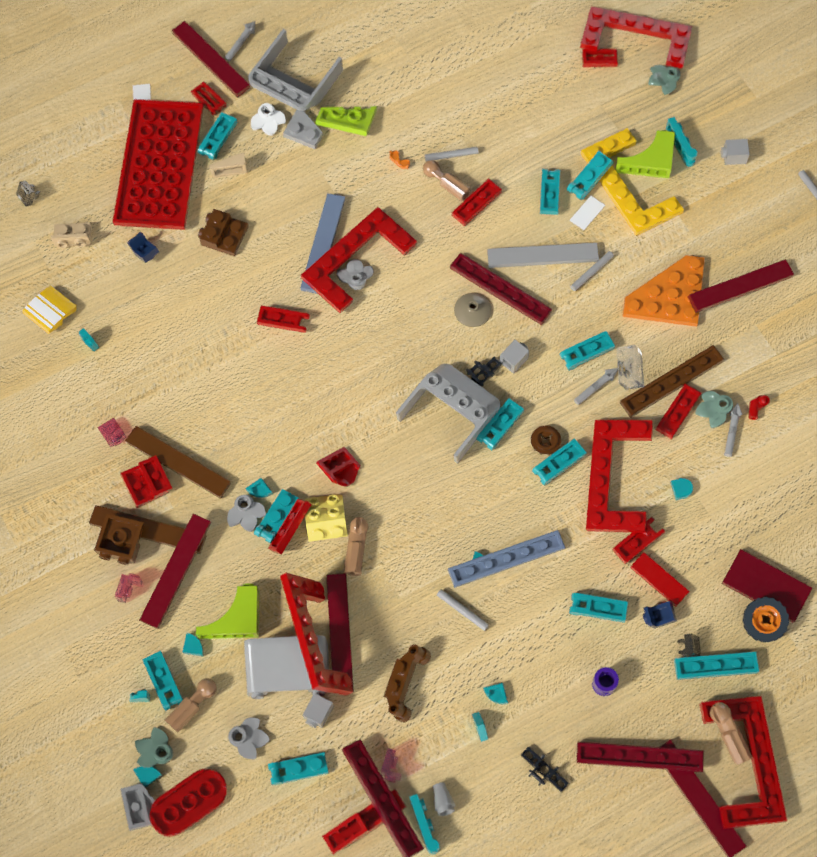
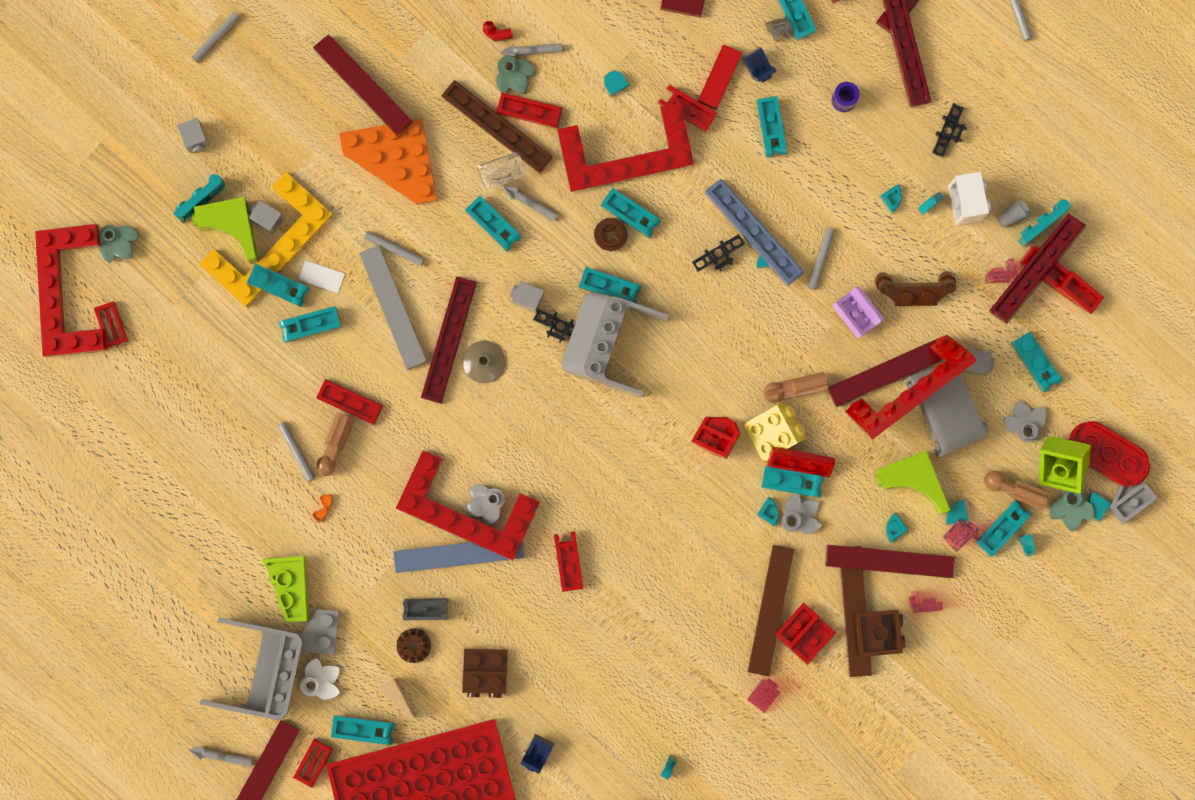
camera: 115 degrees left, 15 degrees up
(173, 640) = (961, 533): none -> clear pink bracket
(195, 753) = (1064, 464): none -> lime slope
(202, 588) = (895, 528): none -> teal tile
(271, 195) = (408, 654): none -> reddish brown gear
(289, 205) = (425, 609): none -> dark grey hinge
(402, 621) = (858, 312): none -> lavender bracket
(469, 757) = (969, 198): none -> white brick
(498, 531) = (726, 253): none -> black piece
(649, 183) = (265, 217): none -> light grey brick

